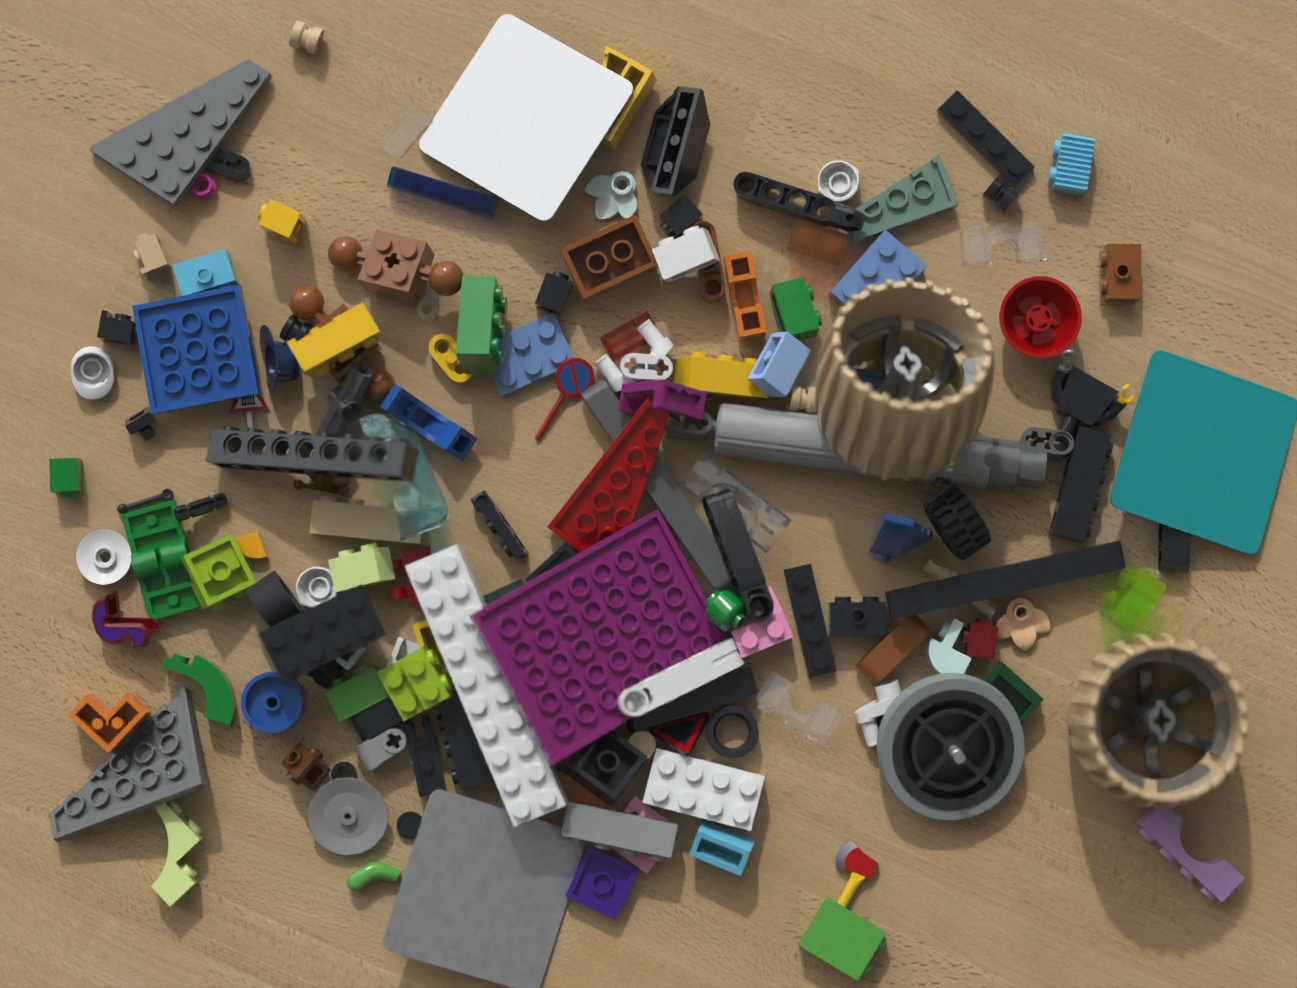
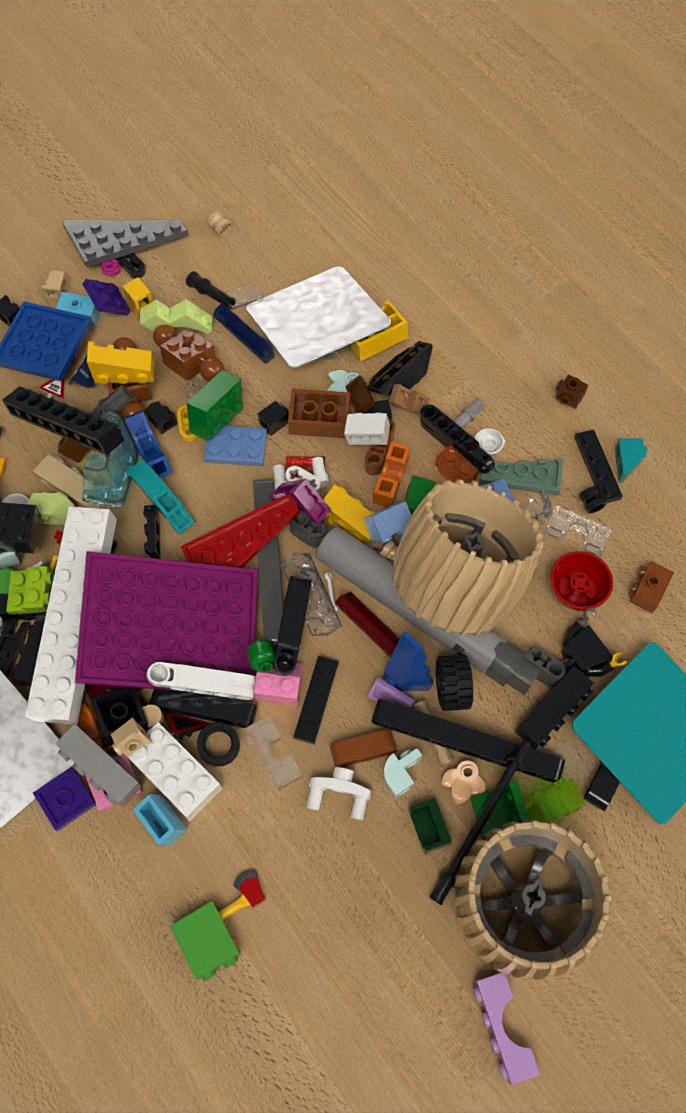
camera: 30 degrees right, 20 degrees down
(234, 239) = (106, 297): none -> dark purple plate
(343, 491) = (49, 447): reddish brown hinge -> none
(345, 220) = (181, 315): none -> yellowish green arch
(348, 149) = (204, 287): none -> black pin
(411, 369) = (161, 417): none -> black brick
(485, 480) = (161, 496): none -> teal slope
(571, 380) = (252, 469): piece -> none
(641, 785) = (129, 738): none -> tan brick
(647, 207) = (360, 395): none -> reddish brown tile
(710, 177) = (408, 400): none -> medium nougat slope
(739, 465) = (328, 576): none -> white hinge
(792, 154) = (468, 414): none -> light grey axle
(825, 500) = (368, 622): none -> dark red brick
(857, 618) = (348, 713): black brick -> none
(892, 573) = (384, 691): none -> lavender tile
(911, 45) = (571, 391): none -> reddish brown brick
(938, 246) = (539, 511): none -> clear helmet
(950, 746) = (364, 838): pearl dark grey wheel -> none
(980, 639) = (428, 775): dark red brick -> none
(1018, 107) = (629, 455): none -> teal slope
(1058, 738) = (447, 880): none -> black bar
(1072, 164) = (648, 506): medium azure brick -> none
(1077, 636) = (508, 809): none -> green bracket

